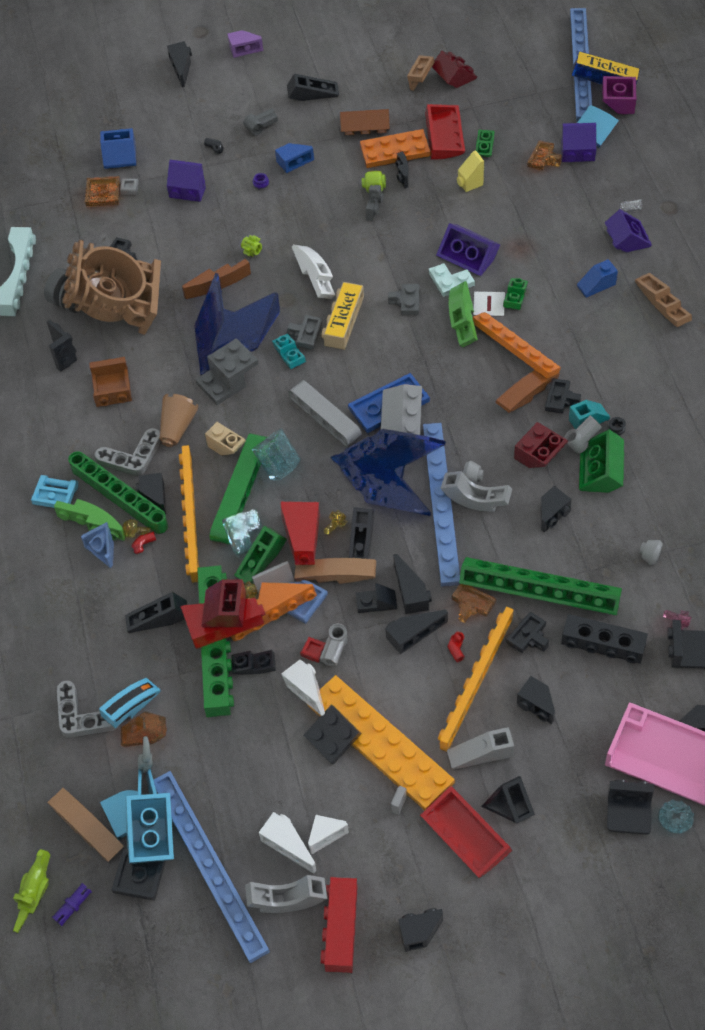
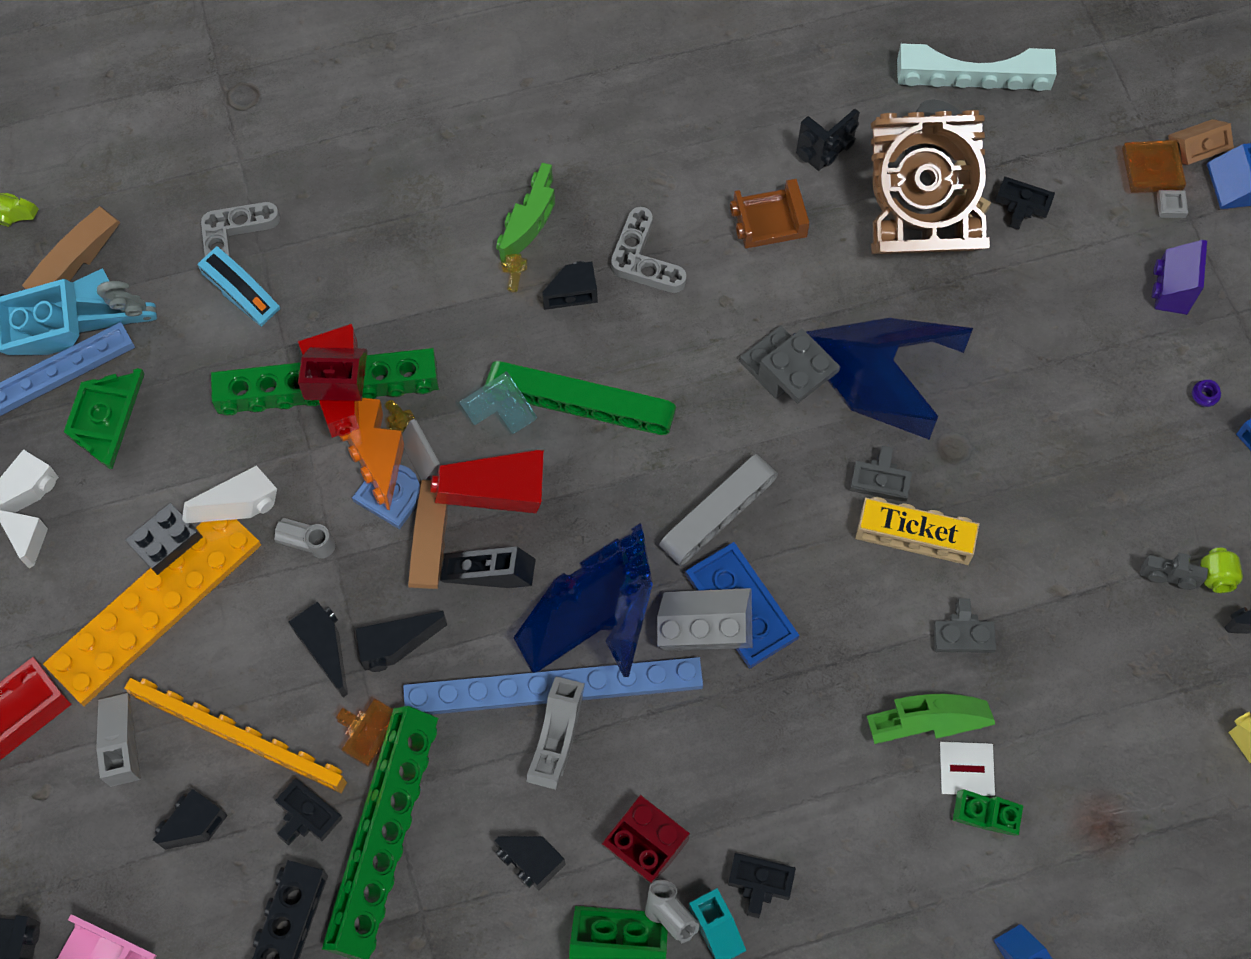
camera: 85 degrees right, 10 degrees up
(48, 496) = (569, 165): medium azure plate -> none
(85, 166) = (1203, 140): none -> medium nougat panel
(100, 543) = (482, 233): medium blue slope -> none
(118, 492) = (576, 230): green beam -> none
(141, 540) = (496, 280): red arm -> none
(143, 725) = (194, 308): clear orange slope -> none
(156, 614) = (370, 310): black slope -> none
(175, 418) = (698, 301): medium nougat cone -> none
(189, 519) = (535, 336): light orange plate -> none
(223, 439) = (660, 369): tan slope -> none
(228, 275) = (981, 344): dark orange slope -> none
(229, 788) = (102, 414): none -> green wing
(249, 663) = (290, 435): black slope -> none
(251, 245) = (1054, 385): lime gear -> none
(261, 554) = (461, 432): green slope -> none
(277, 455) = (626, 442): clear light blue slope -> none
(288, 351) = (843, 454): teal slope -> none
(312, 649) = (306, 510): red tile -> none
(318, 271) = (1008, 483): white slope -> none
(337, 518) = (521, 534): clear yellow plate -> none
(378, 600) = (380, 594): black slope -> none
(398, 800) = (56, 627): light grey tile -> none
(446, 281) = (1006, 701): light aqua plate -> none
(455, 644) = (296, 705): red arm -> none
(467, 249) = (1081, 730): dark purple slope -> none
(473, 471) = (599, 731): light grey cone -> none
(510, 801) = (37, 784): black slope -> none
(516, 345) = (865, 807): orange plate -> none
(523, 391) = (774, 825): dark orange slope -> none

